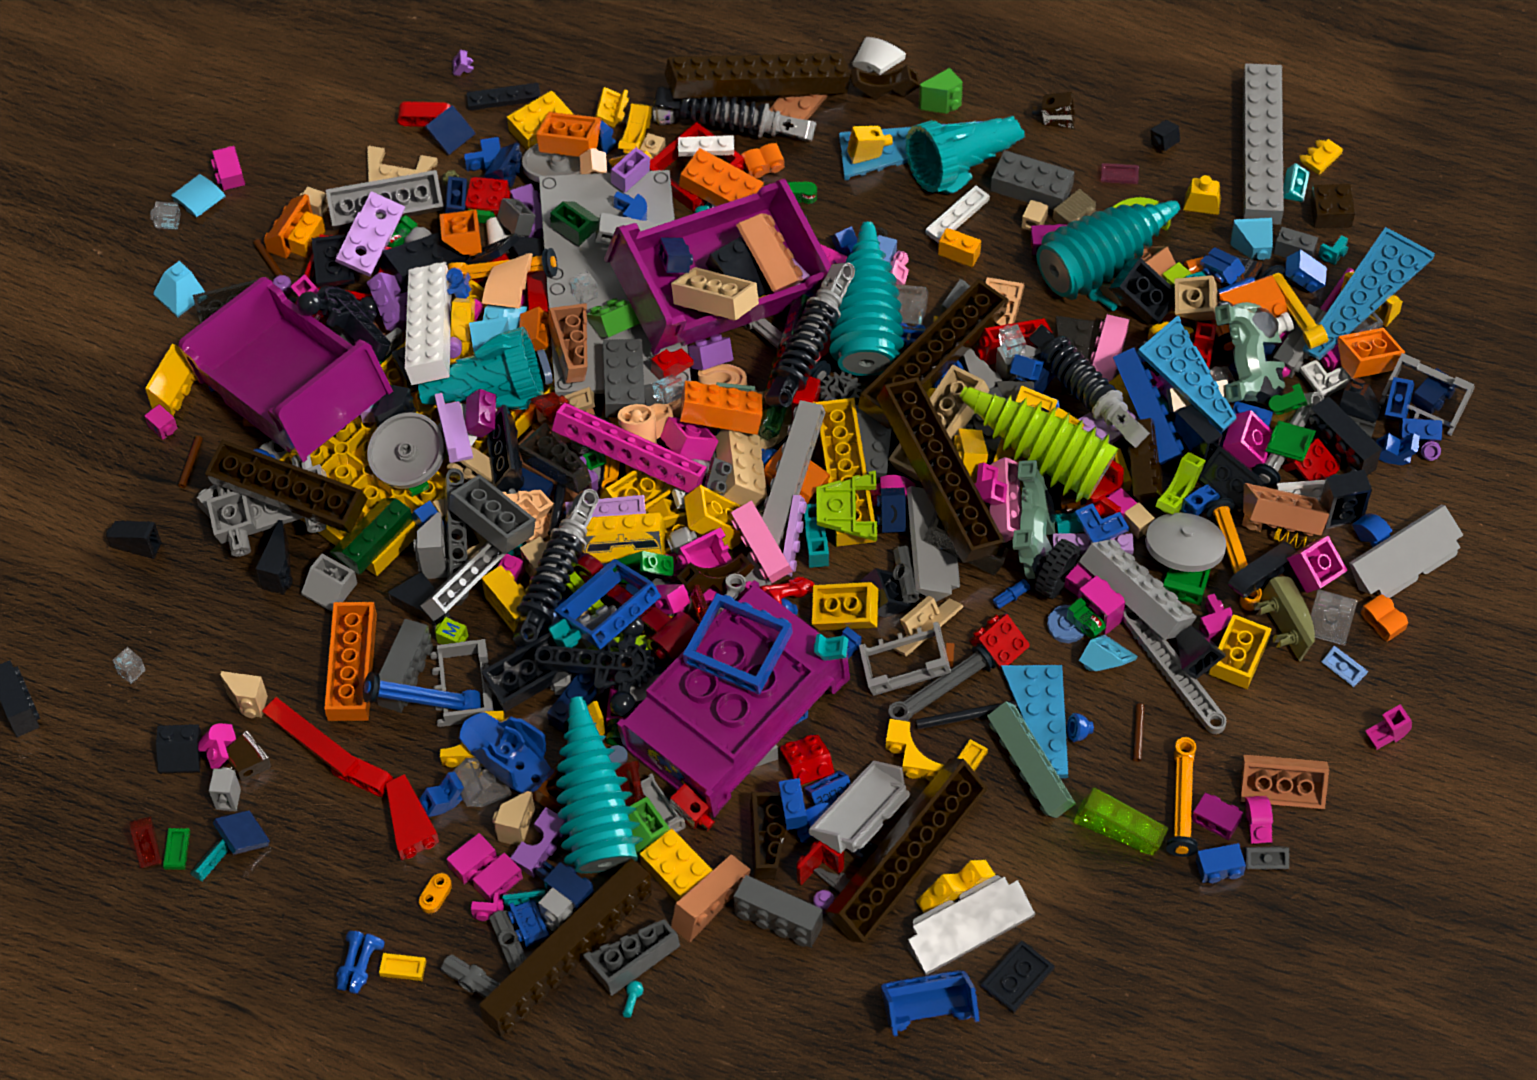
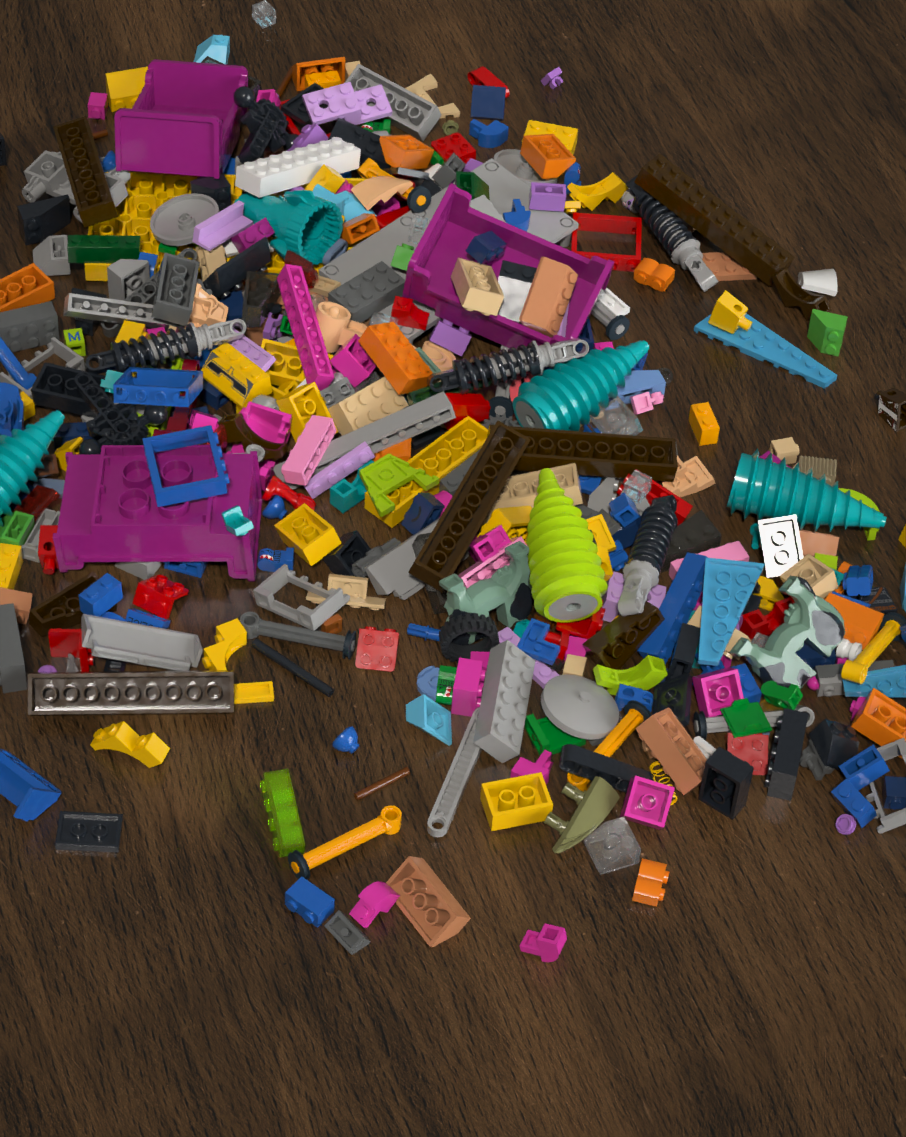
camera: 45 degrees right, 10 degrees down
(198, 195) = (297, 20): medium azure slope -> none
(228, 168) = (334, 20): dark pink brick -> none
(455, 194) = (433, 132): dark blue brick -> none
(458, 284) = (352, 169): blue hips -> none
(503, 96) = (549, 113): black plate -> none
(506, 164) = (488, 145): dark blue slope -> none
(569, 337) = (366, 247): nougat wedge -> none
(593, 162) = (536, 175): light nougat brick -> none
(611, 106) = (601, 169): yellow bracket -> none
(648, 562) = (220, 399): green panel -> none
(653, 144) = (594, 207): tan brick -> none
(713, 144) = (625, 232): white plate -> none
(716, 179) = (599, 241): orange brick -> none
(804, 191) = (648, 309): green leg -> none
(944, 154) = (779, 363): teal cone -> none
(958, 213) = (738, 407): white plate -> none
(971, 922) = (107, 771): slope -> none
(1031, 180) = (813, 428): dark grey brick -> none
(1031, 760) = (286, 725): sand green brick -> none
(1041, 705) = (349, 704): dark azure wing -> none
(1120, 173) = (885, 481): clear pink tile -> none
(1197, 652) = (483, 770): black slope -> none
(1217, 816) = (350, 874): magenta brick -> none
(1322, 381) = (832, 709): white brick -> none
(1344, 666) = (579, 884): light blue slope -> none
(1372, 529) = (721, 831): blue brick -> none
(1396, 450) = (818, 799): blue brick -> none
(1408, 553) = (715, 859): light grey slope -> none

